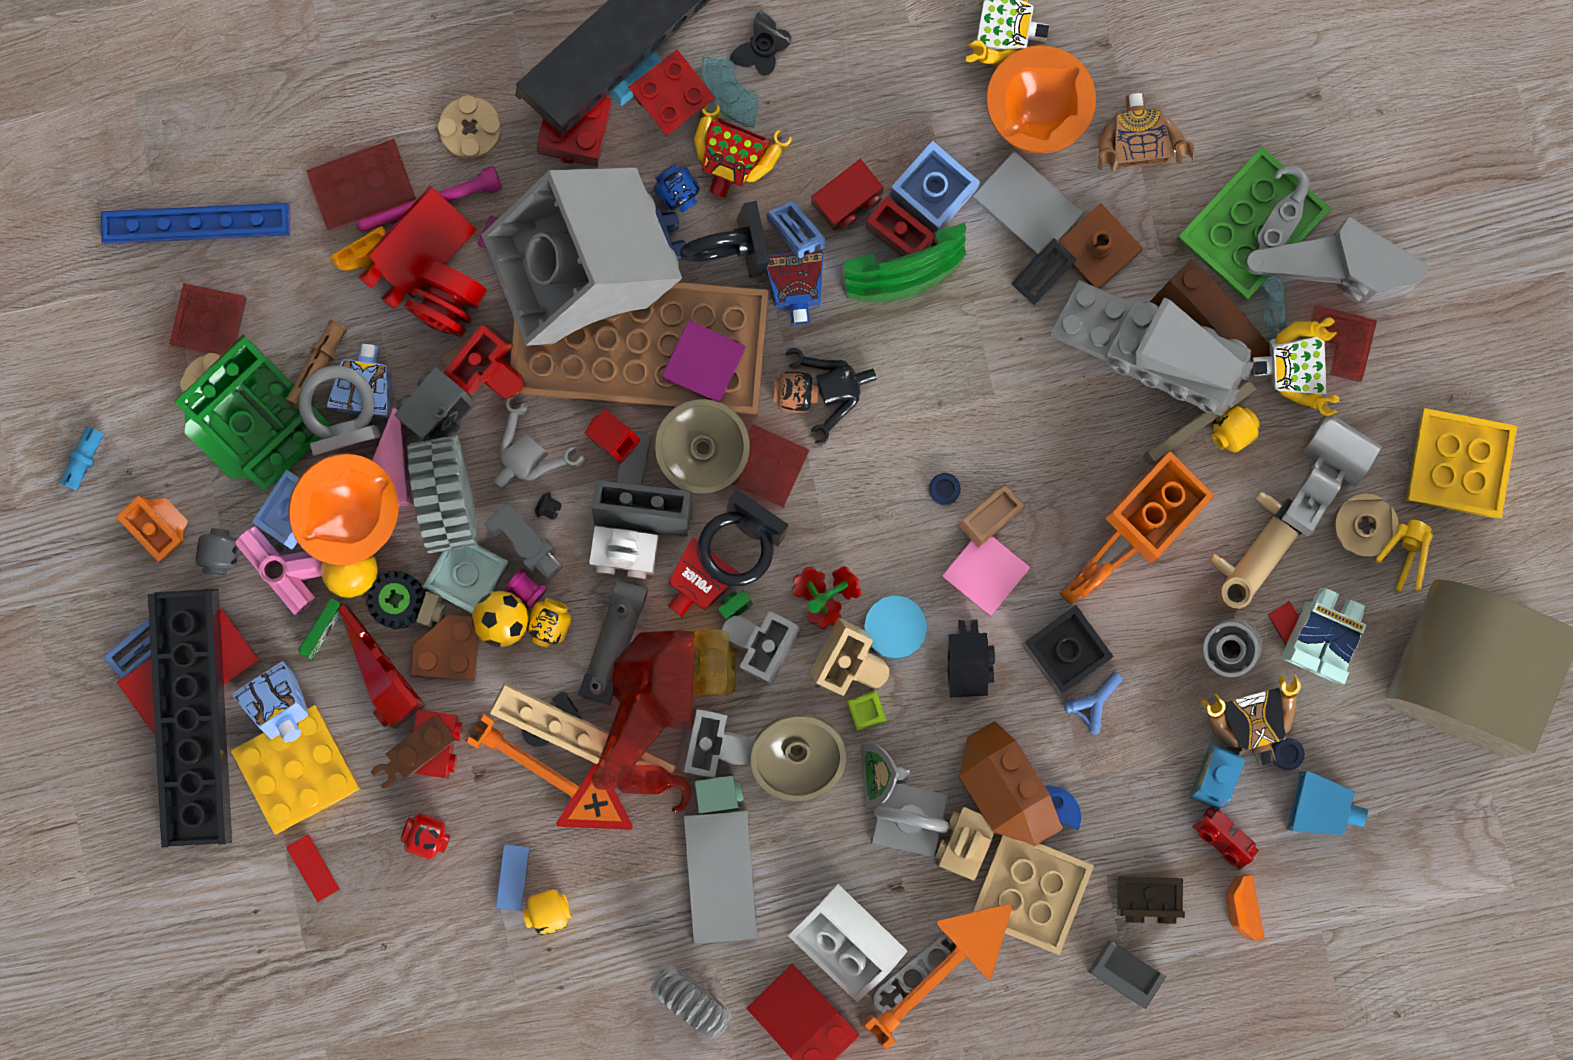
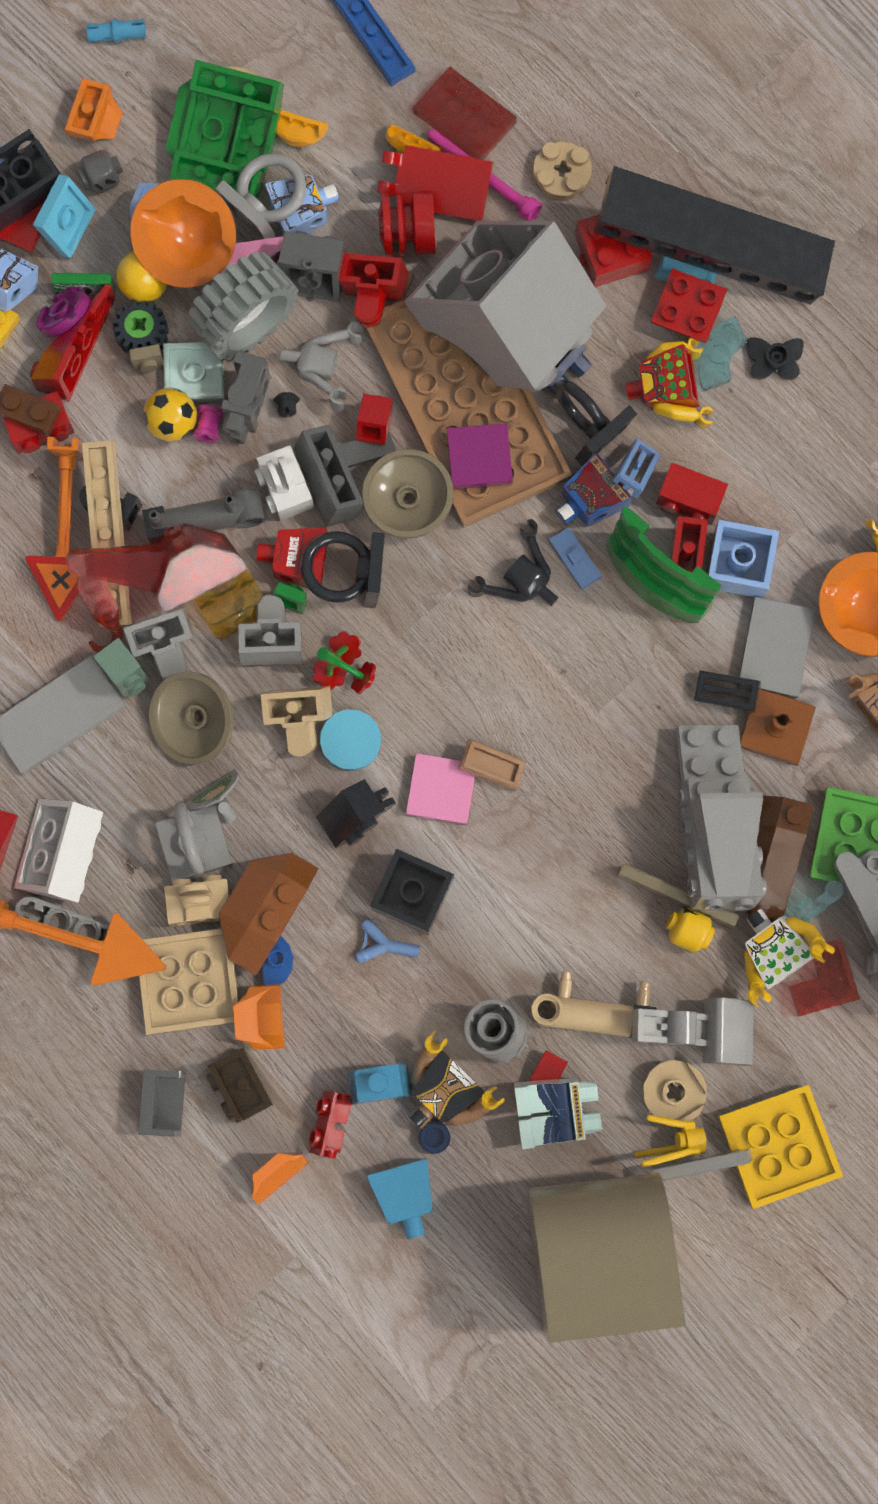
camera: 60 degrees right, 5 degrees down
(207, 319) = (284, 58): clear red plate -> none
(248, 609) = (64, 216): none -> medium azure plate
(286, 344) = (300, 130): none -> light orange plate
(295, 569) = (107, 239): bright pink piece -> none
(322, 353) = (307, 160): medium nougat pin -> none
(341, 662) = (64, 313): none -> magenta plate
(447, 650) = (121, 392): dark orange plate -> none
(548, 622) = (190, 456): yellow head -> none
(676, 188) = (612, 355): blue head -> none
(771, 466) = (426, 562): clear red plate -> none
(795, 392) = (499, 545): head -> none
(843, 332) = (575, 558): none -> medium blue piece
(866, 710) = (266, 756): lime tile -> none
(944, 489) = (492, 715): dark blue tile -> none
(1101, 845) = (260, 1017): none -> orange slope
(1148, 517) = (565, 894): orange slope -> none
(1444, 535) = (704, 1164): none -> light grey tile

